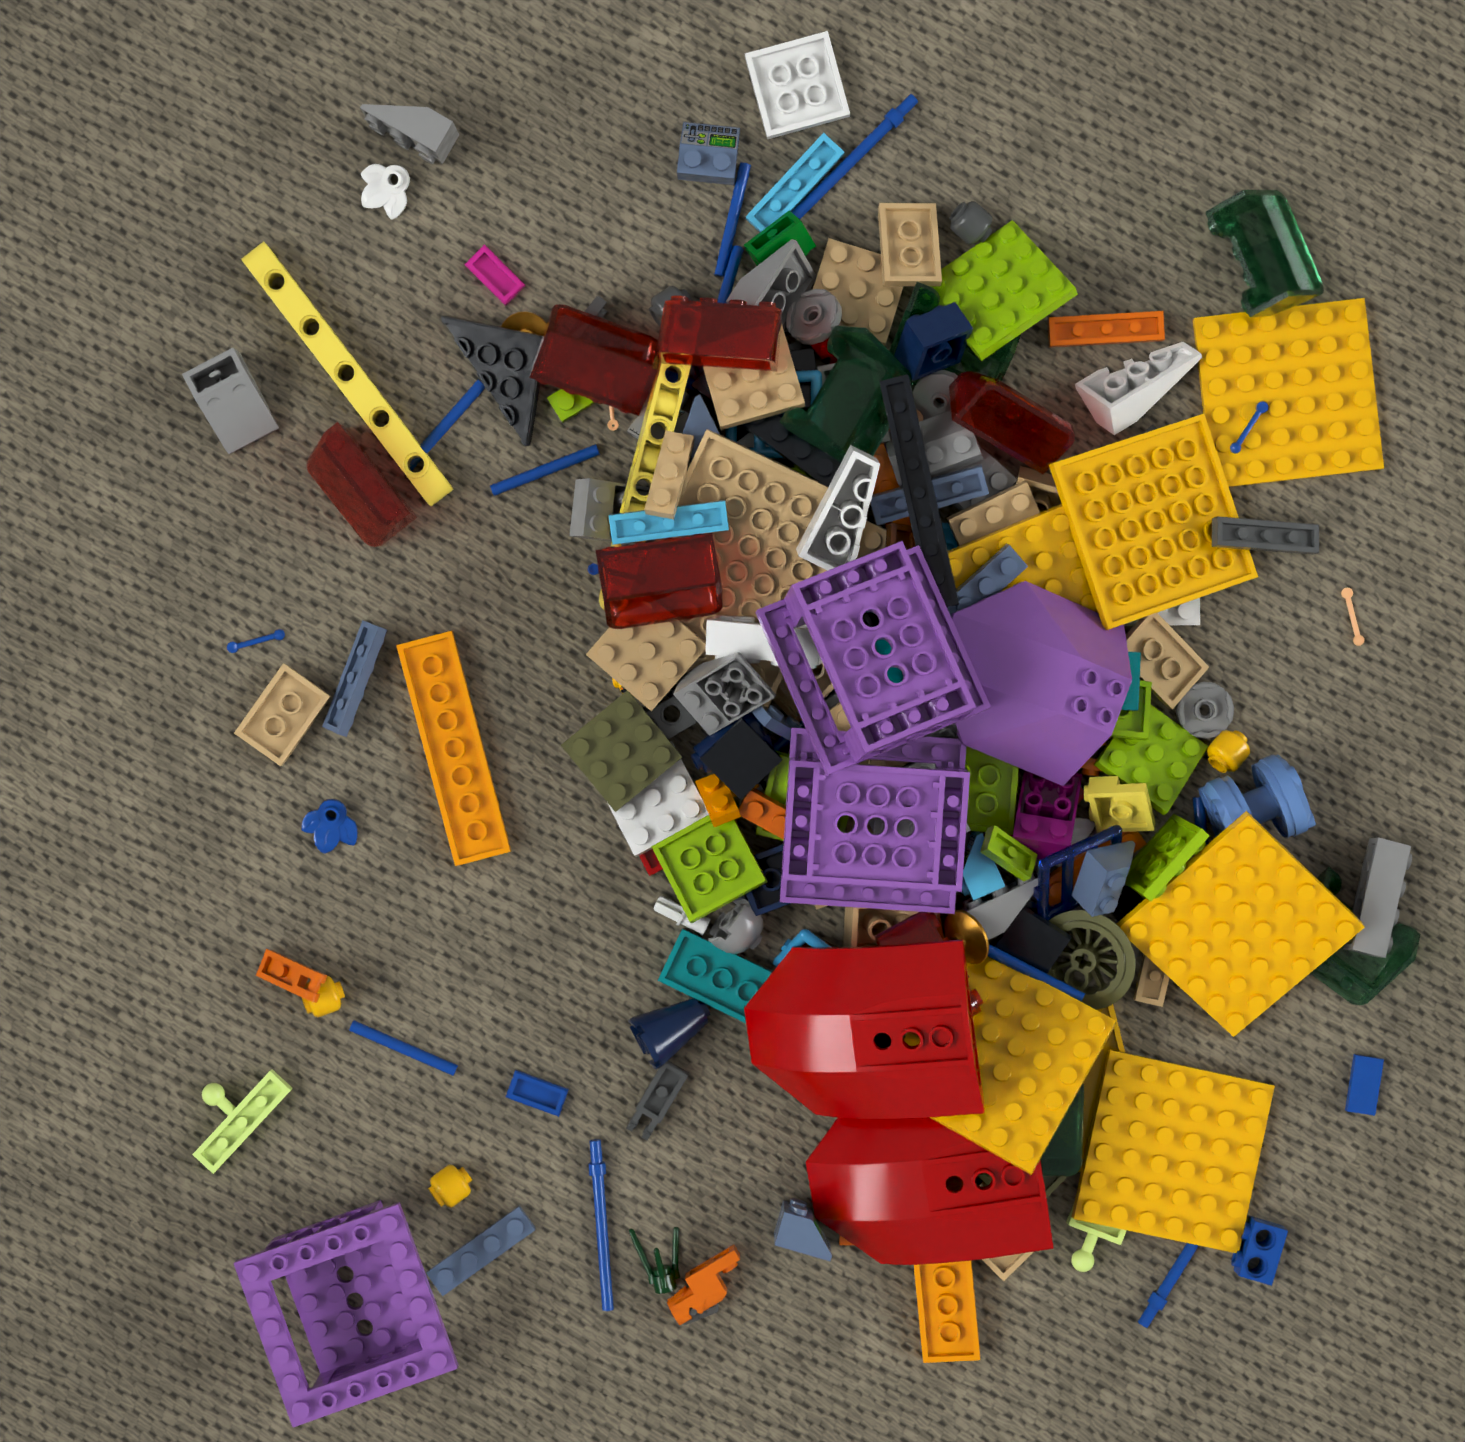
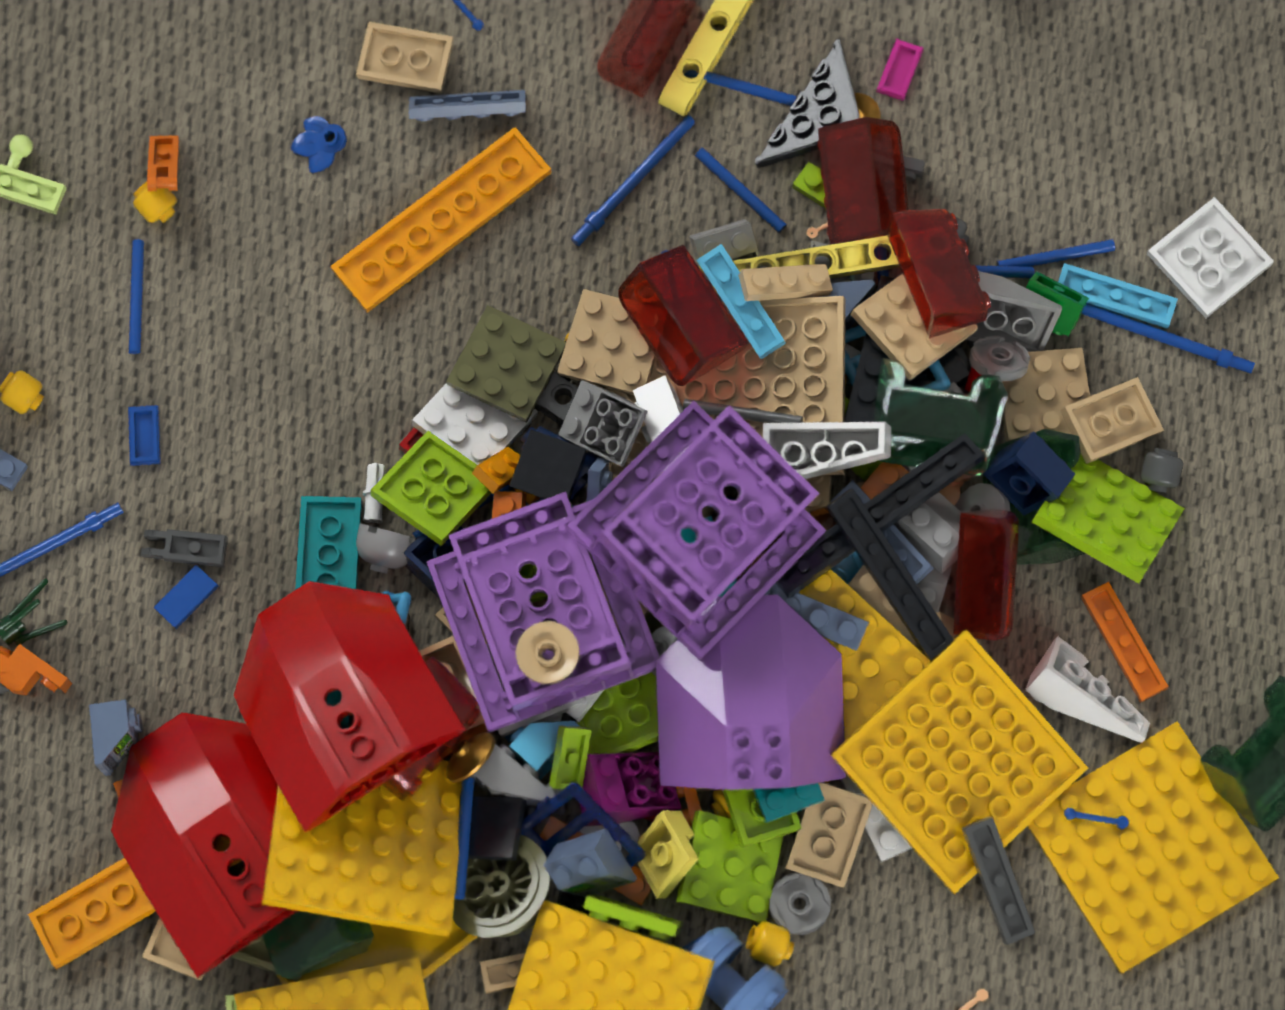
camera: 70 degrees right, 15 degrees down
(516, 612) = (595, 220): none -> blue bar
(668, 1029) = (258, 525): dark blue cone -> none
(701, 1116) = (186, 596): none -> blue tile
(708, 153) = (1105, 205): sand blue slope -> none
(770, 566) = (747, 413): none -> dark grey bar
(946, 850) = (545, 637): none -> tan dish
(978, 507) = (890, 574): none -> black plate

